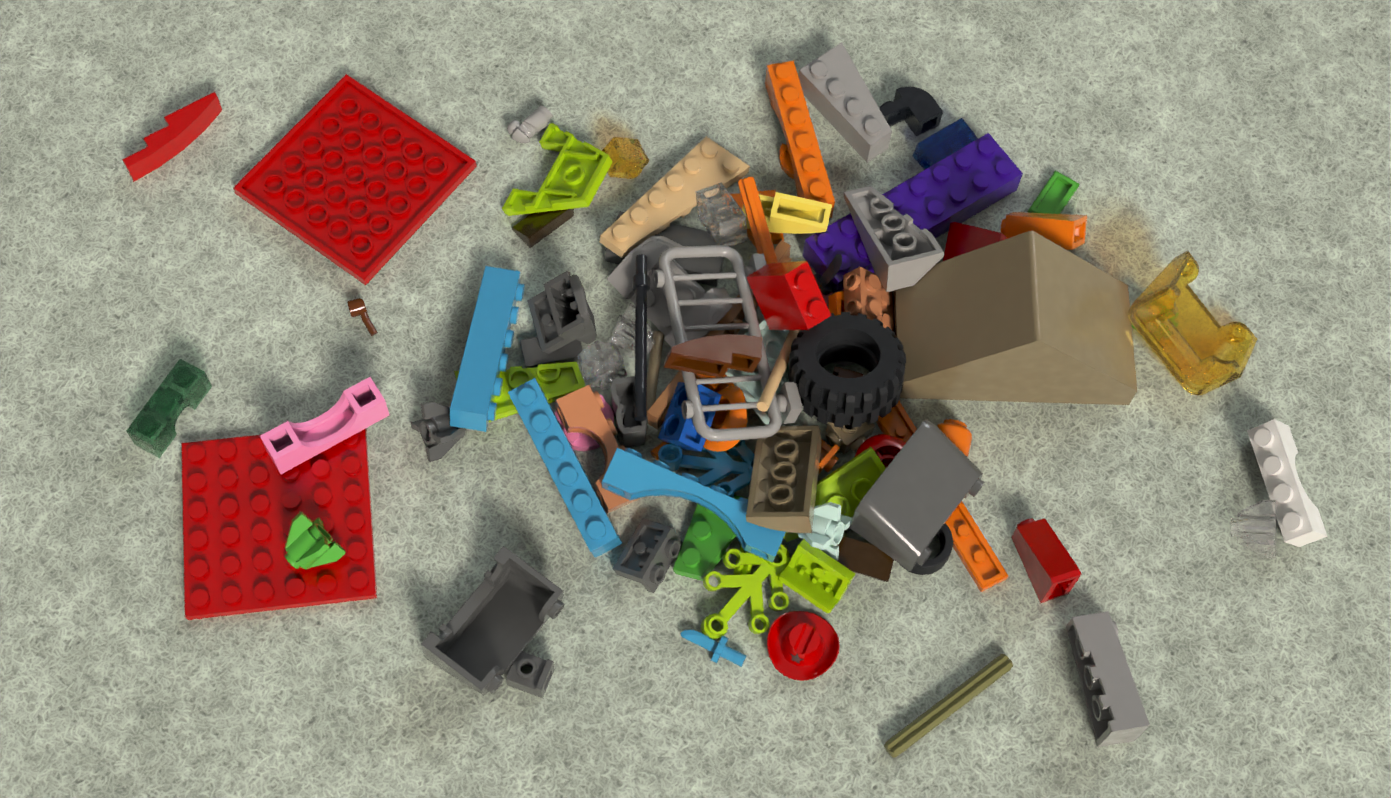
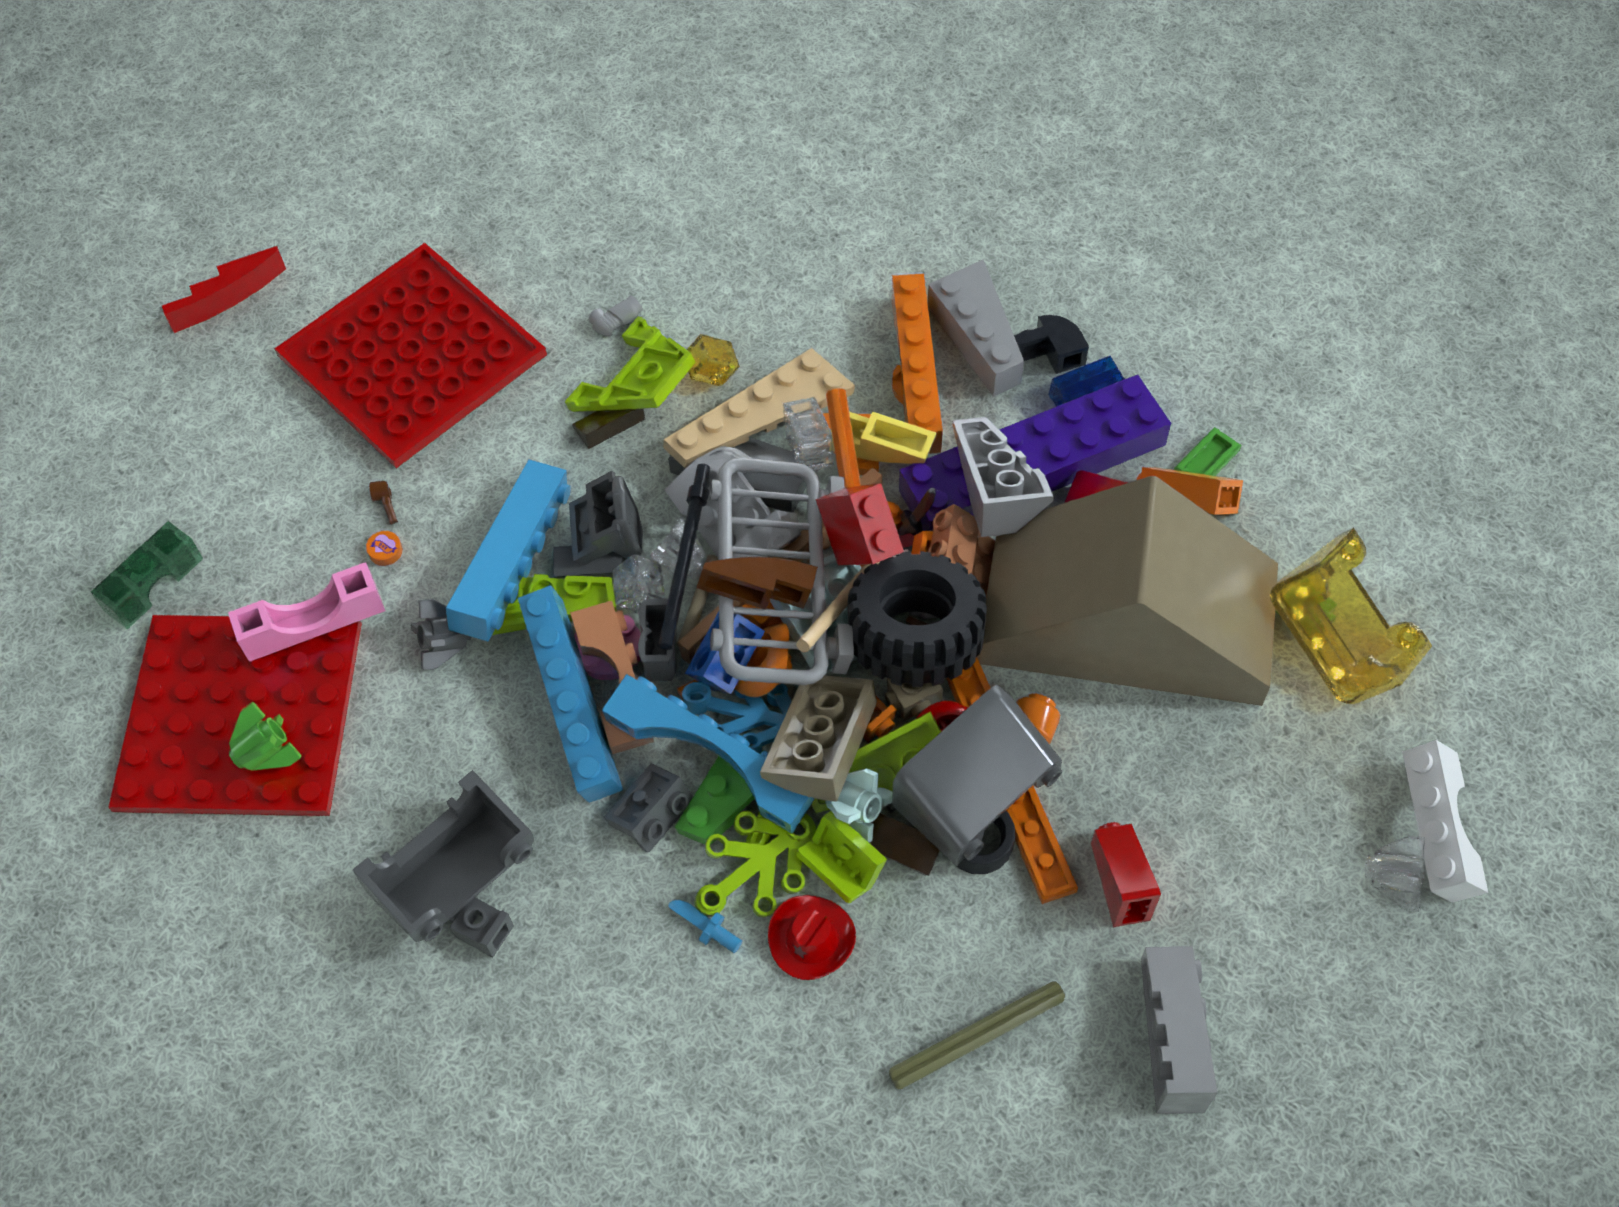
camera: 15 degrees right, 5 degrees down
(371, 358) = (384, 548): none -> orange tile

